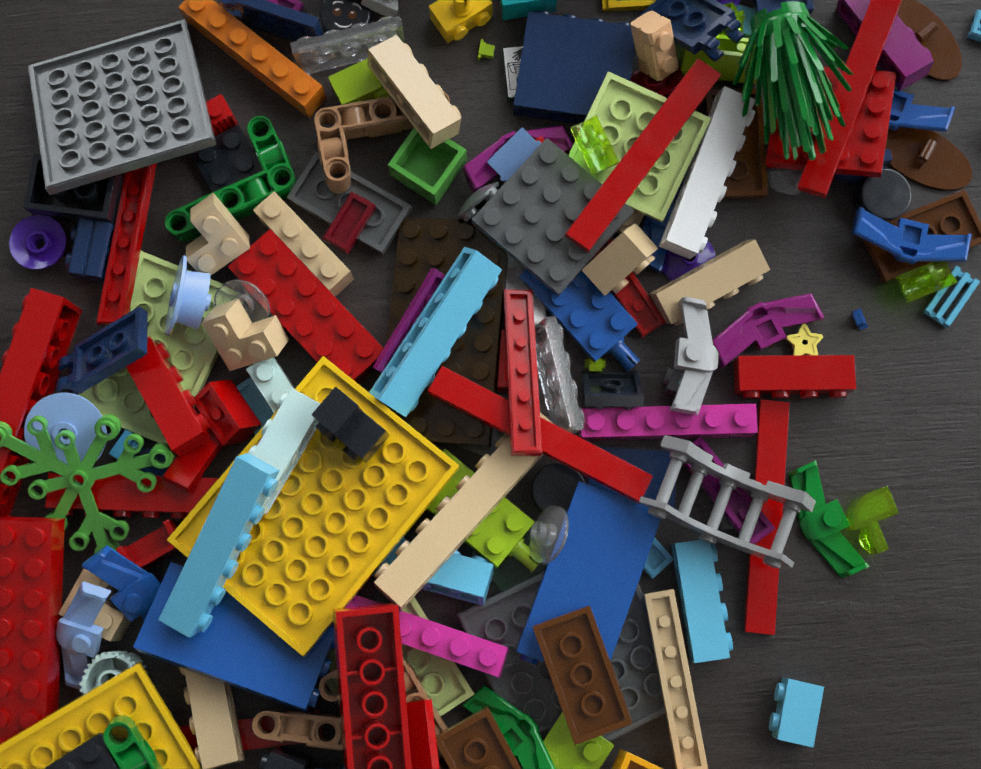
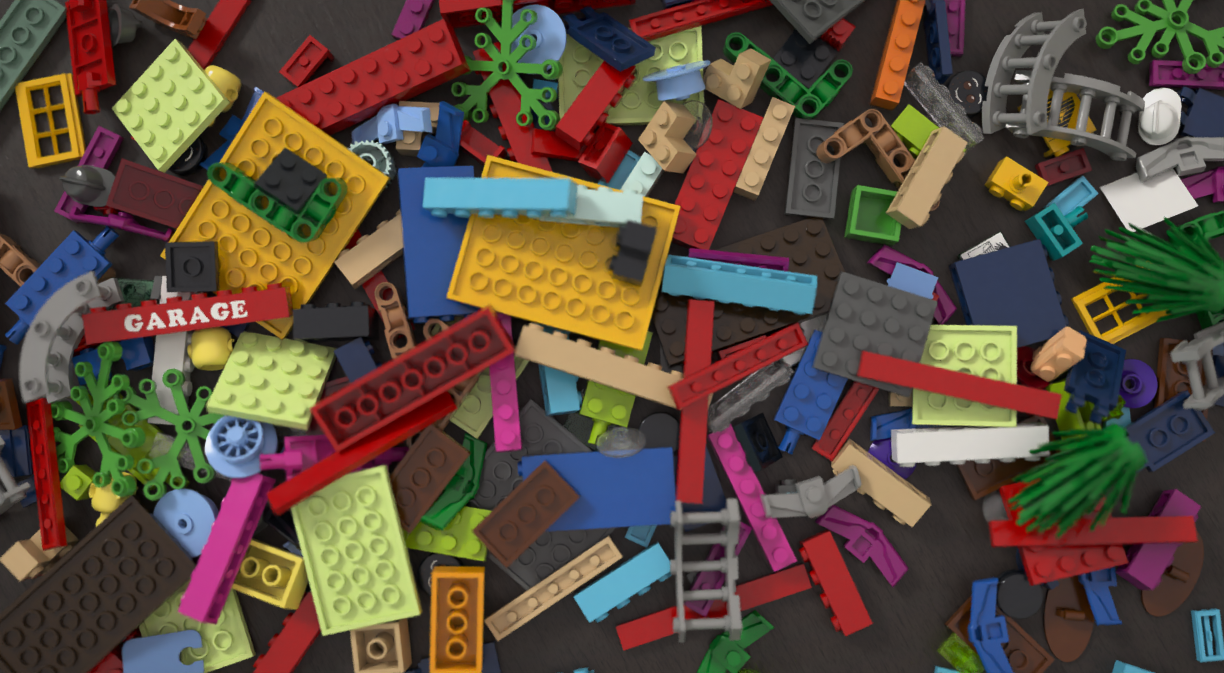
camera: 70 degrees right, 5 degrees up
(349, 222) = (797, 176): dark red tile -> none
(469, 207) = (869, 271): dark grey dish -> none
(485, 50) = (992, 218): lime piece -> none
(594, 145) = (948, 342): clear neon green hips -> none
(597, 366) = (771, 422): lime piece -> none
(625, 254) = (869, 406): tan brick -> none
(804, 334) = (873, 577): light yellow plate -> none
(859, 319) = (905, 617): blue piece -> none

